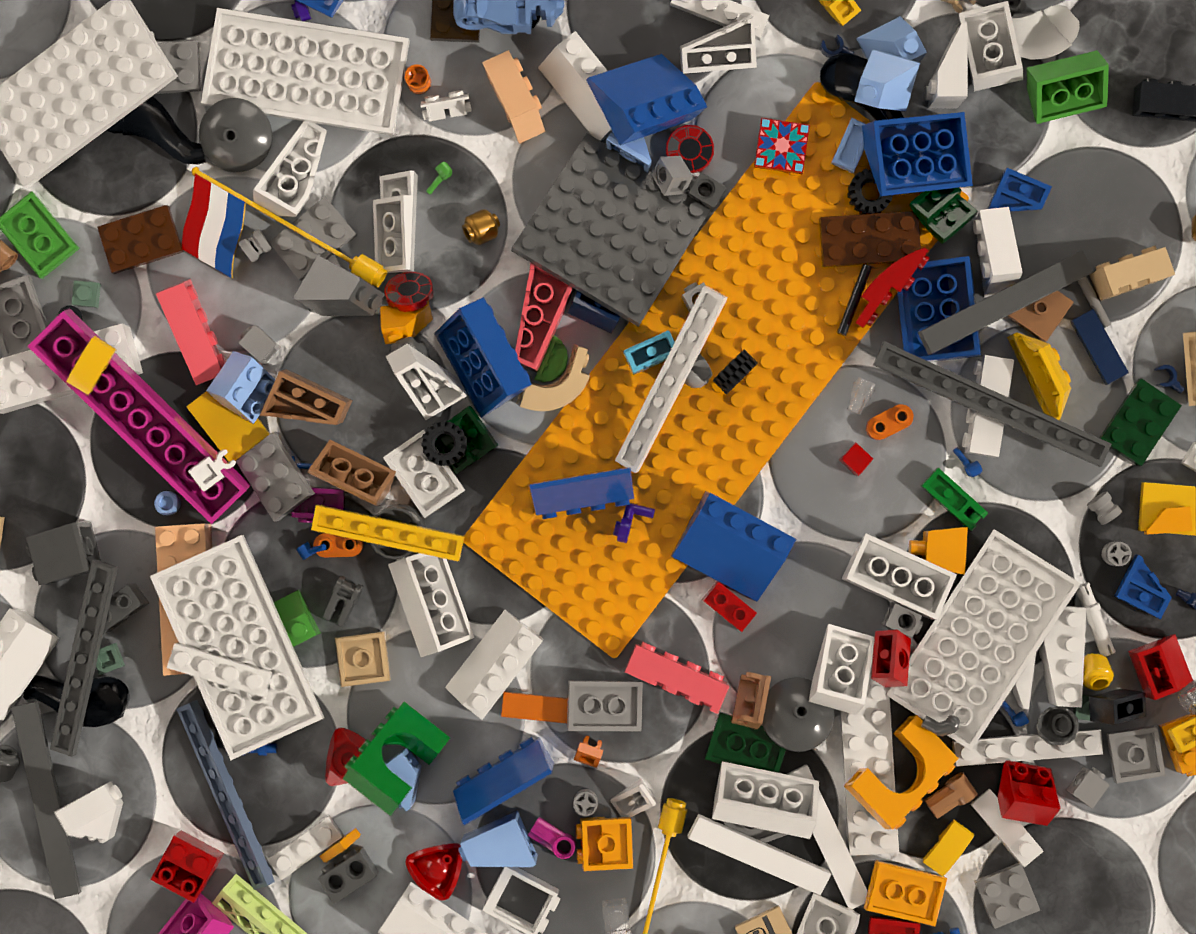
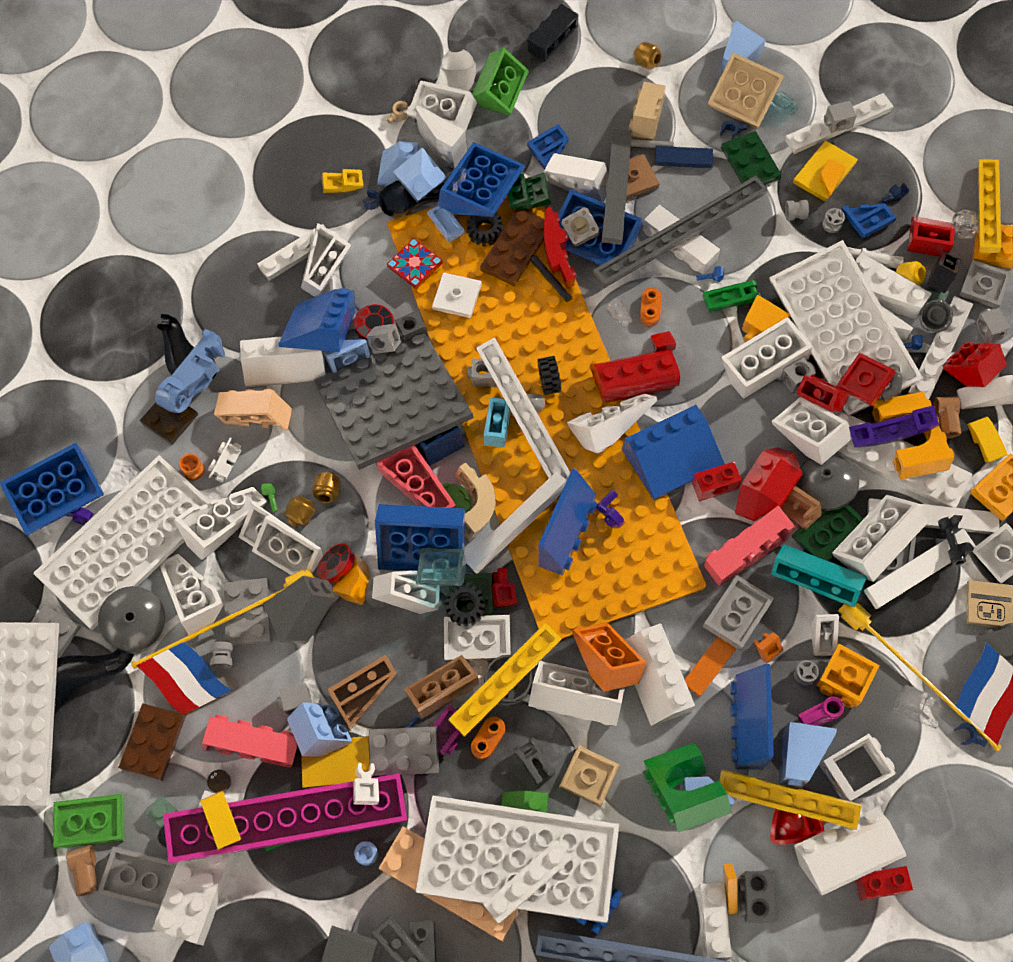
camera: 55 degrees left, 20 degrees down
(144, 326) = (219, 781): none -> dark brown tile
(307, 550) = (476, 765): blue hand -> none
(342, 748) = (660, 839): red hat -> none
(373, 143) = (211, 524): none -> white wedge
(440, 218) = (299, 511): none -> pearl gold head
(447, 855) = (791, 799): none -> yellow plate
(460, 400) = (441, 567): none -> clear light blue slope
(481, 609) = (608, 657): none -> orange slope
(484, 470) = (502, 591): none -> red plate
(559, 439) = (516, 523): none -> white tile
(688, 762) = (818, 575): none -> teal brick
(718, 462) = (605, 428): none -> white wedge
(760, 659) = (768, 483): none -> red wedge
(772, 215) = (457, 295): none -> white plate
(796, 456) = (636, 375): none -> red container
(796, 881) = (958, 552): none -> black piece
(895, 751) = (894, 429): none -> dark purple slope
(930, 294) = (580, 227): none -> piece
(932, 694) = (866, 379): none -> red tile
(1043, 373) = (677, 195): yellow wedge -> none

